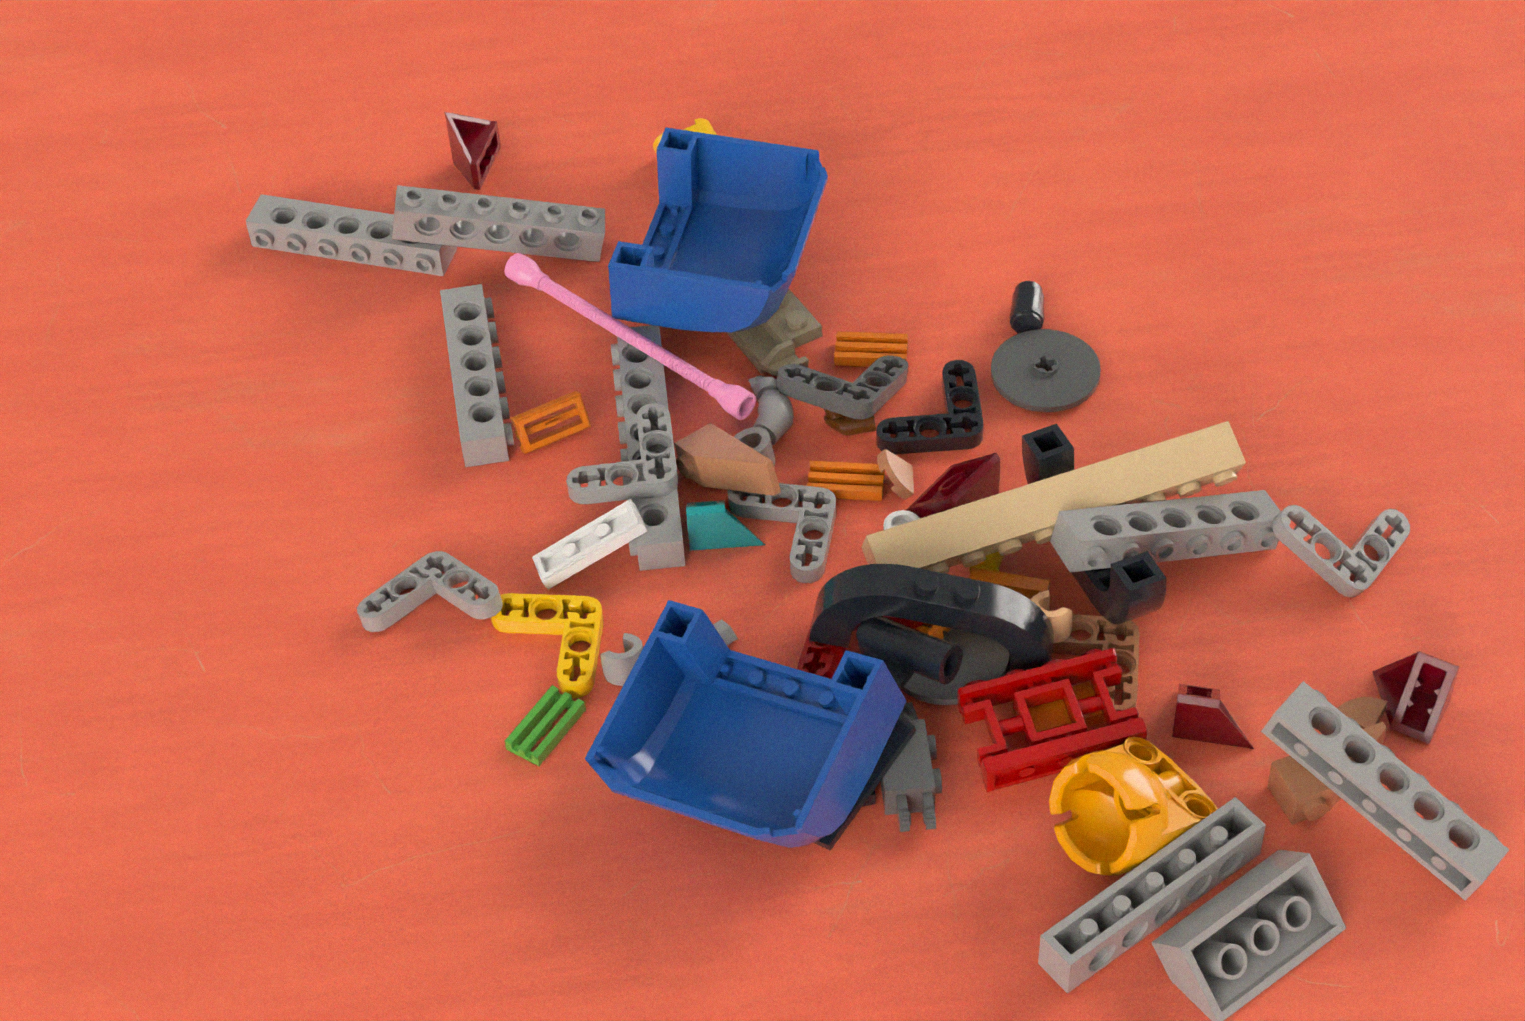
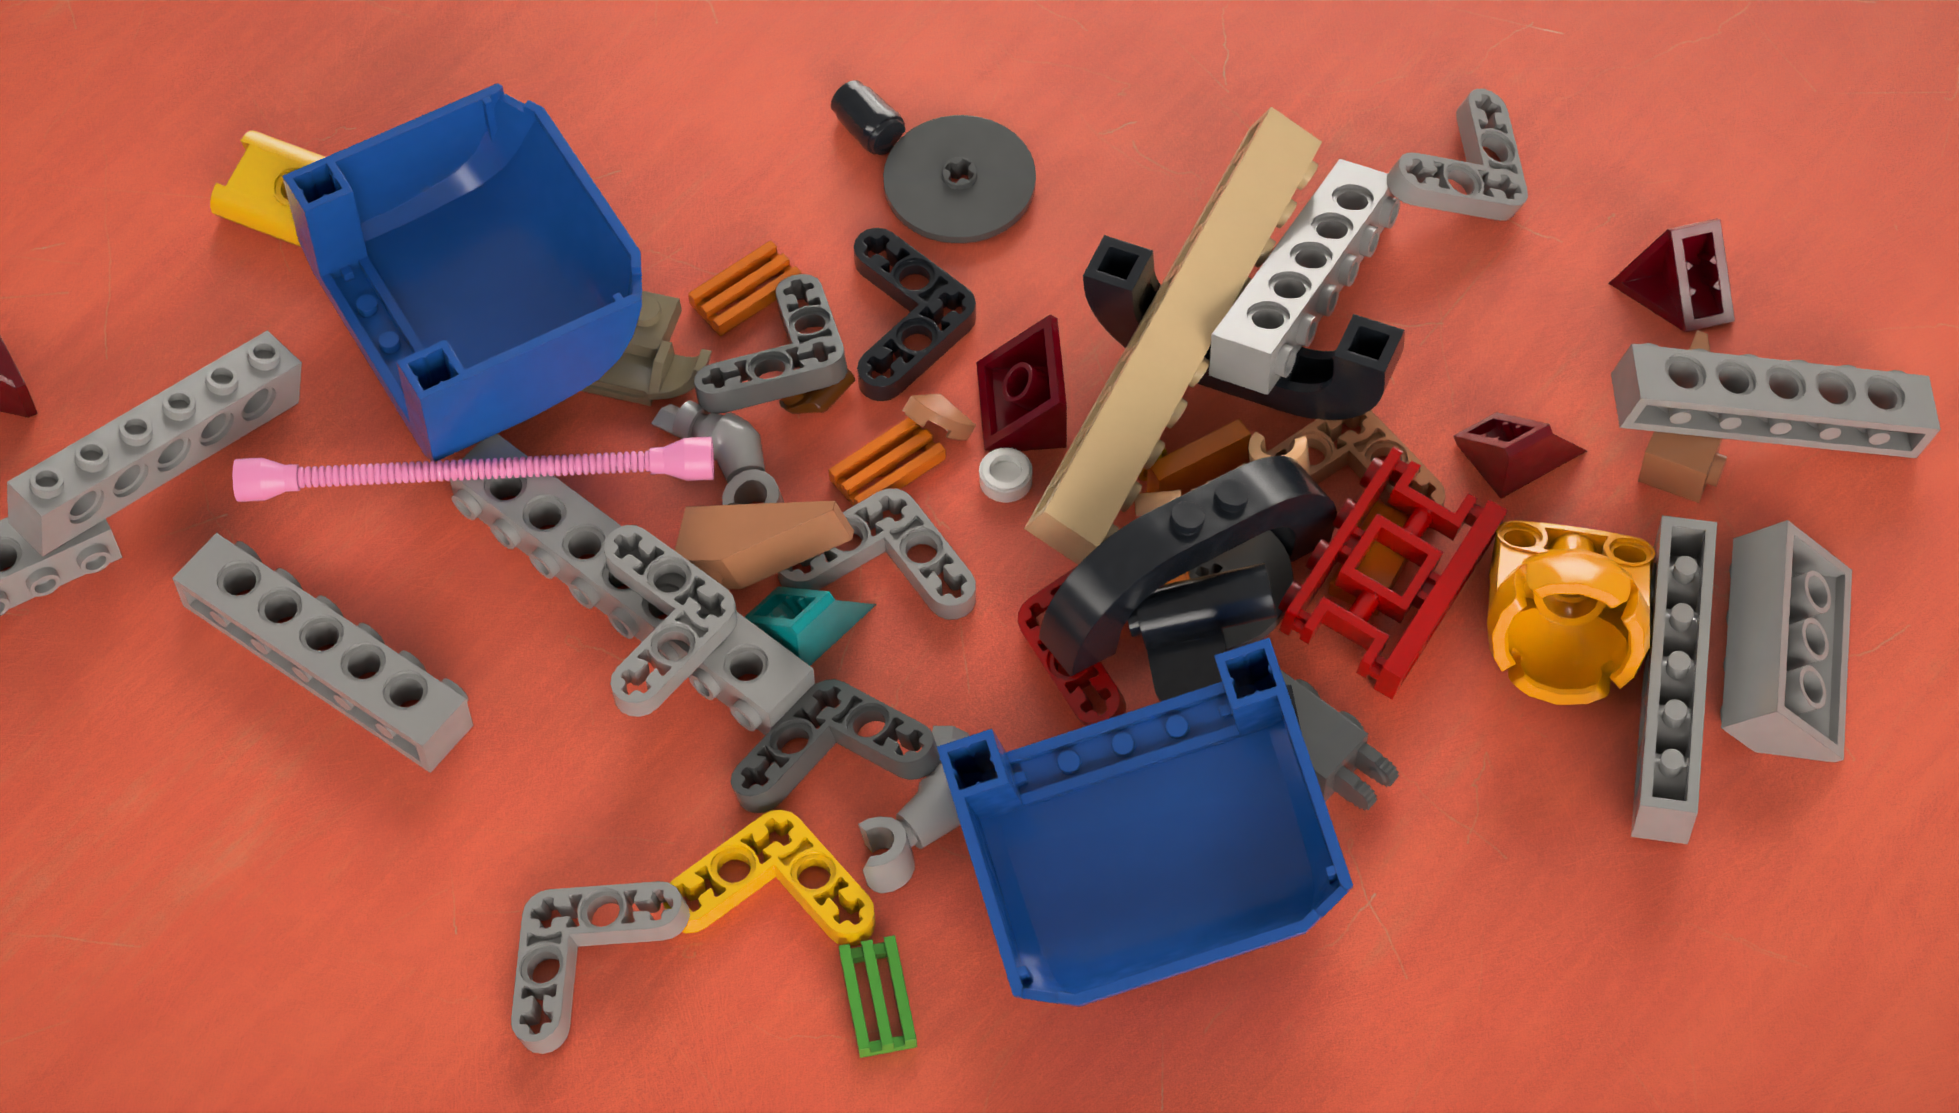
camera: 45 degrees left, 10 degrees up
(533, 414) = (480, 637): orange tile -> none
(589, 544) = (704, 752): white tile -> none
(662, 574) = (836, 726): none -> dark grey beam
(1364, 710) = (1653, 328): nougat tile -> none

